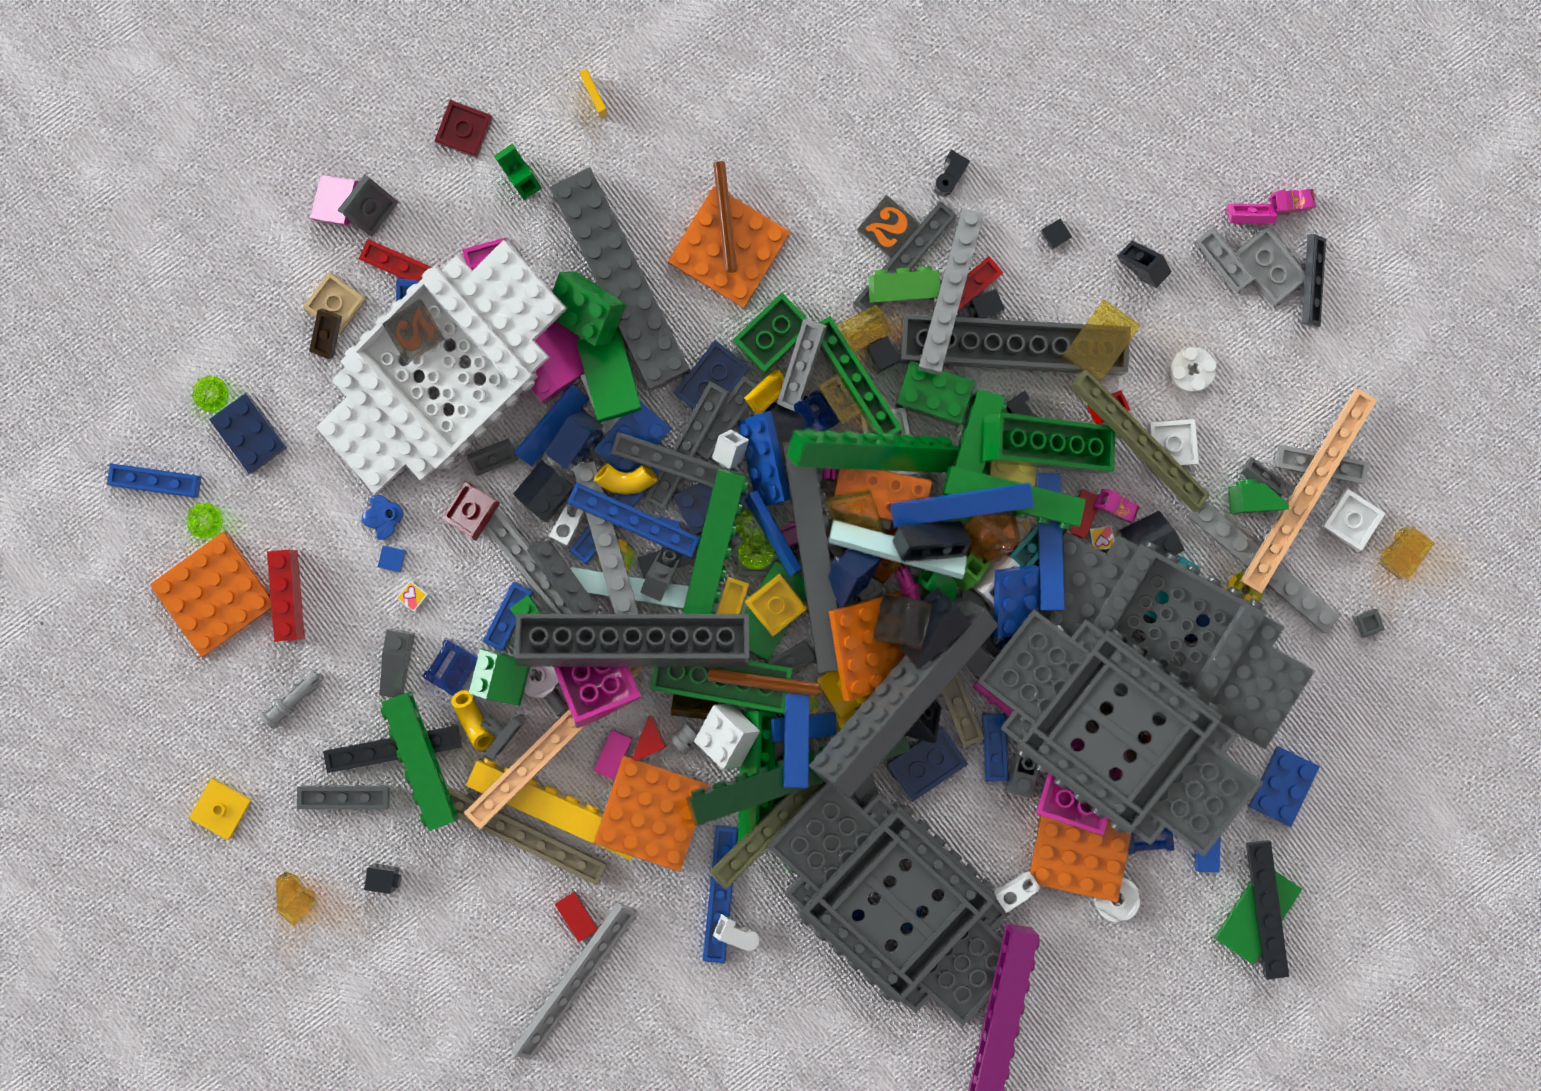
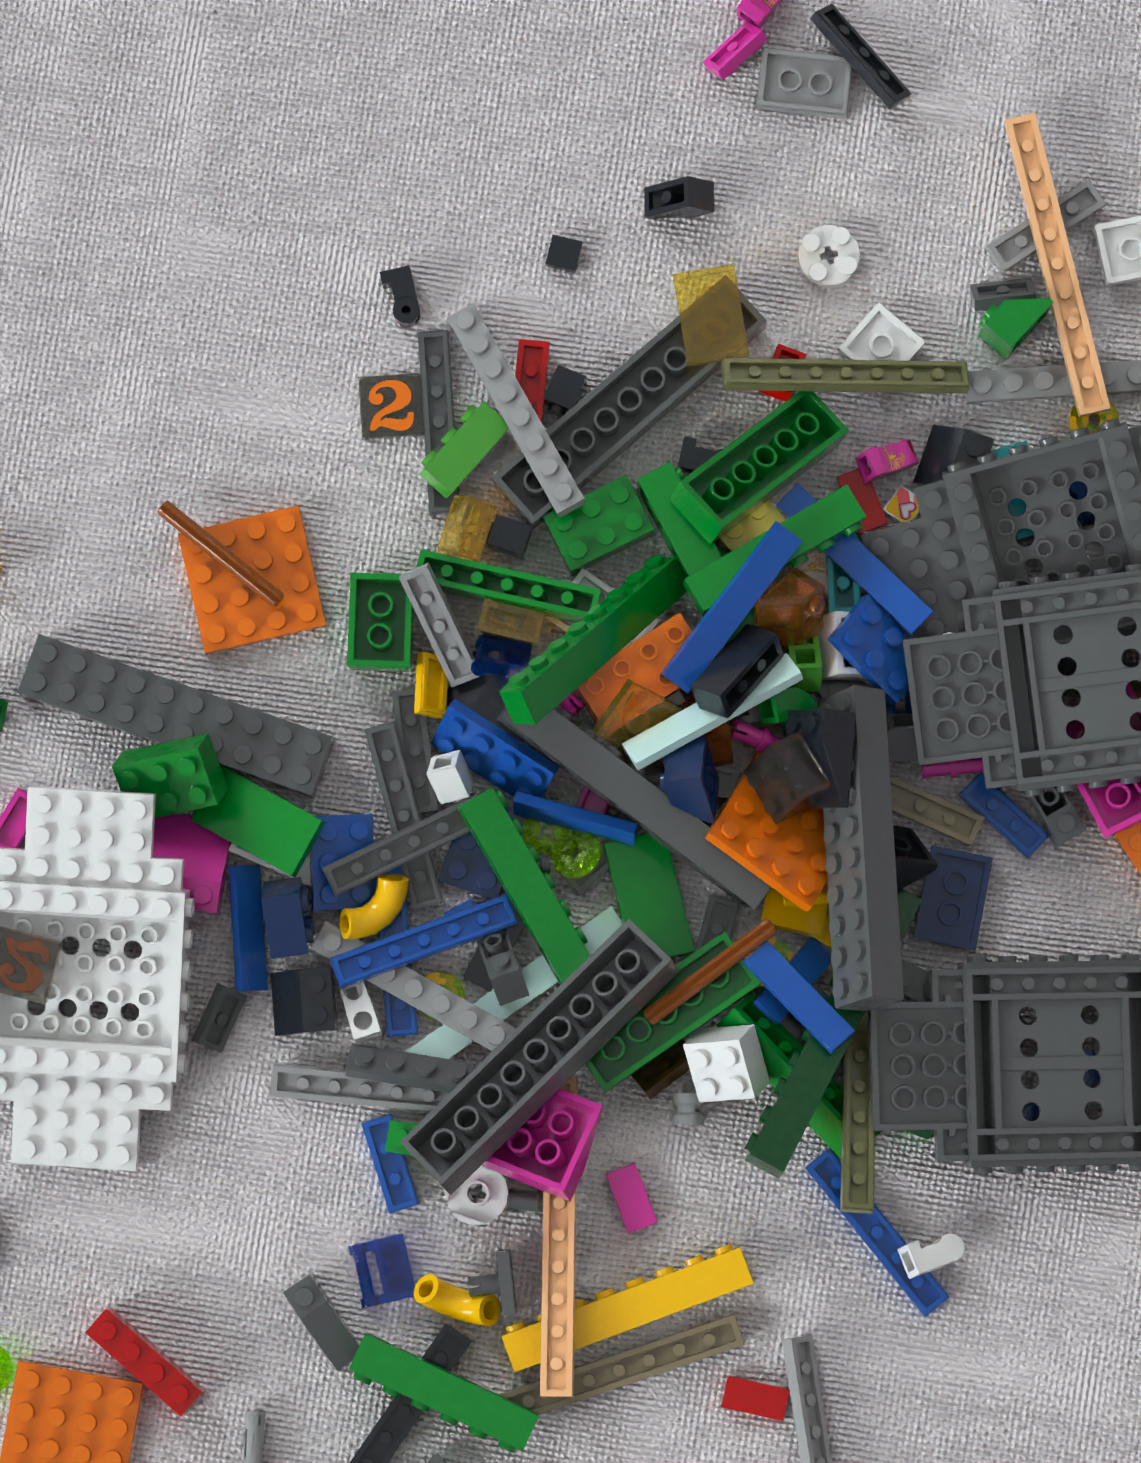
camera: 35 degrees left, 5 degrees down
(379, 516) = (162, 1190): blue plate -> none
(391, 558) = (216, 1220): blue tile -> none
(412, 596) = (274, 1237): tile -> none
(470, 510) = (249, 1092): tile -> none
(498, 678) = (443, 1229): green slope -> none
(648, 814) = (726, 1219): orange plate -> none
(650, 740) = (655, 1147): red slope -> none
(715, 366) = (353, 709): dark blue plate -> none
(732, 596) = (595, 919): yellow tile -> none
(776, 605) = (647, 886): yellow tile -> none
(1225, 259) = (754, 119): light grey tile -> none

